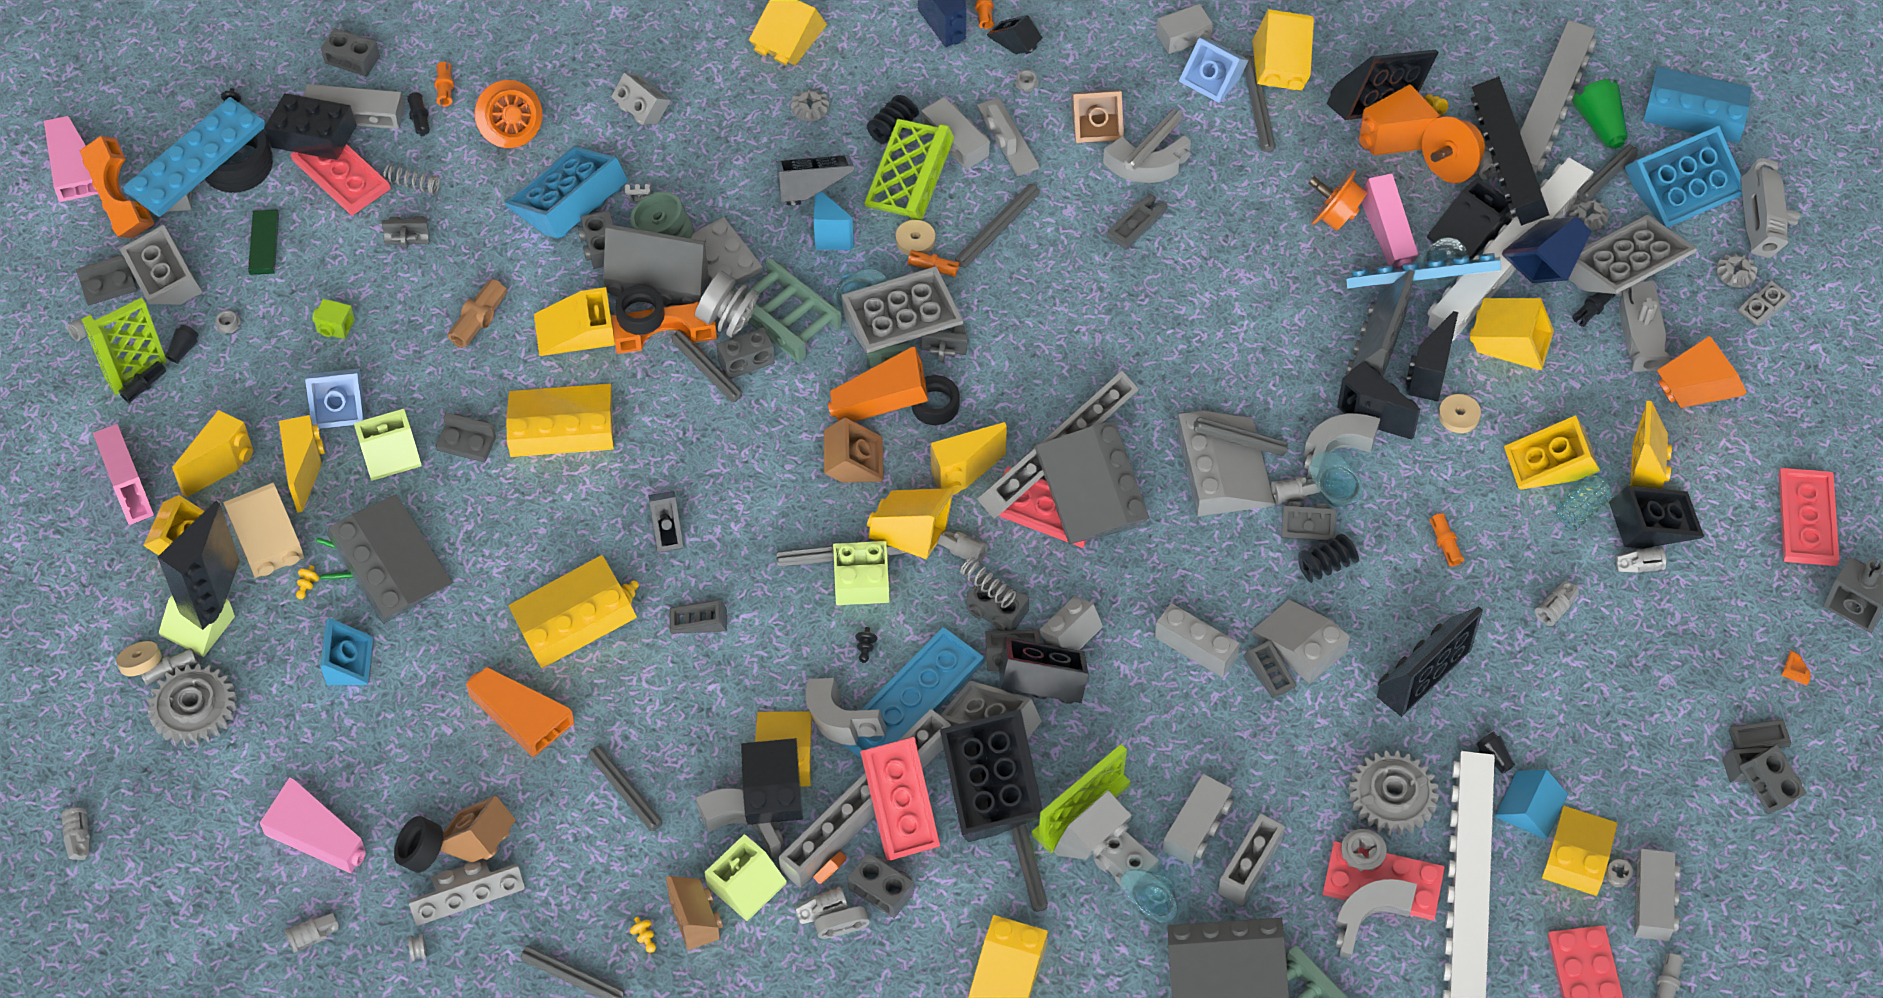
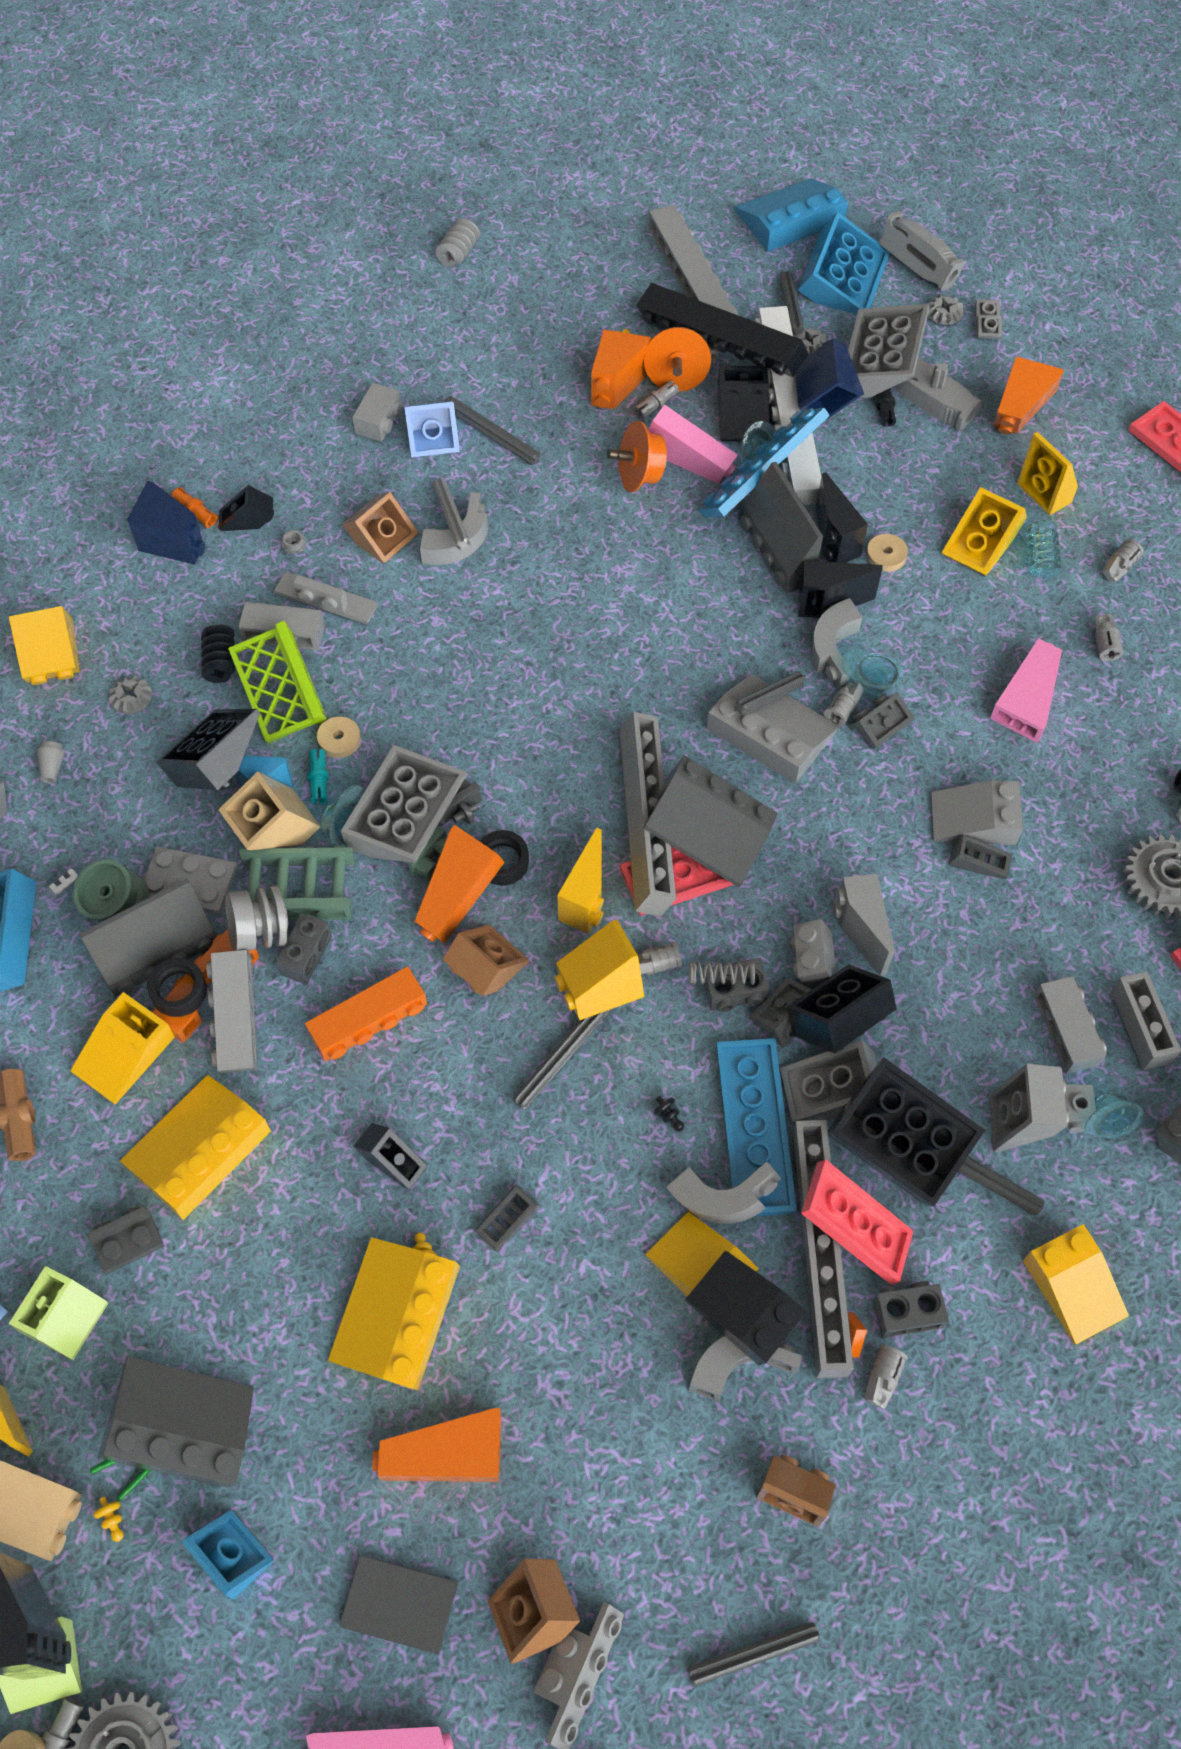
camera: 45 degrees left, 5 degrees up
(409, 767) = (399, 1605): none -> dark grey tile
(418, 844) = (481, 1687): black tyre -> none
(594, 234) = (68, 950): dark grey brick -> none
(625, 788) = (611, 1431): dark grey axle -> none
(645, 936) = (773, 1552): yellow hair -> none
(660, 354) = (233, 1012): none -> light grey brick
(706, 366) = (293, 989): dark grey axle -> none
(714, 109) = (49, 759): none -> light grey cone
(741, 425) = (366, 1014): none -> orange brick
(744, 877) = (803, 1415): yellowish green slope -> none
(808, 249) = (268, 815): none -> tan slope
(842, 922) = (916, 1374): light grey beam -> none
(861, 573) = (605, 1054): yellowish green slope -> none
(873, 251) = (318, 776): none -> teal pin
(928, 261) = (377, 746): orange pin -> none
(997, 225) = (395, 676): dark grey axle -> none
(1103, 777) = (979, 1084): lime fence -> none
(1133, 631) = (865, 919): none -> light grey slope
(1136, 222) = (501, 590): dark grey hinge -> none
(1197, 640) = (917, 879): light grey brick -> none
(1283, 49) = (473, 373): yellow slope -> none
(1327, 555) = (927, 735): black piece -> none
(1378, 79) = (580, 353): black slope -> none
(1411, 170) = (656, 399): none -> light grey pin
(1429, 661) = (1089, 750): black slope -> none
(1445, 590) = (1029, 694): none -> bright pink slope
(1446, 539) = (986, 653): orange pin -> none
(1513, 330) = (859, 461): yellow slope -> none
(1603, 112) = (744, 261): green cone -> none
(1654, 517) = (1095, 524): black slope -> none

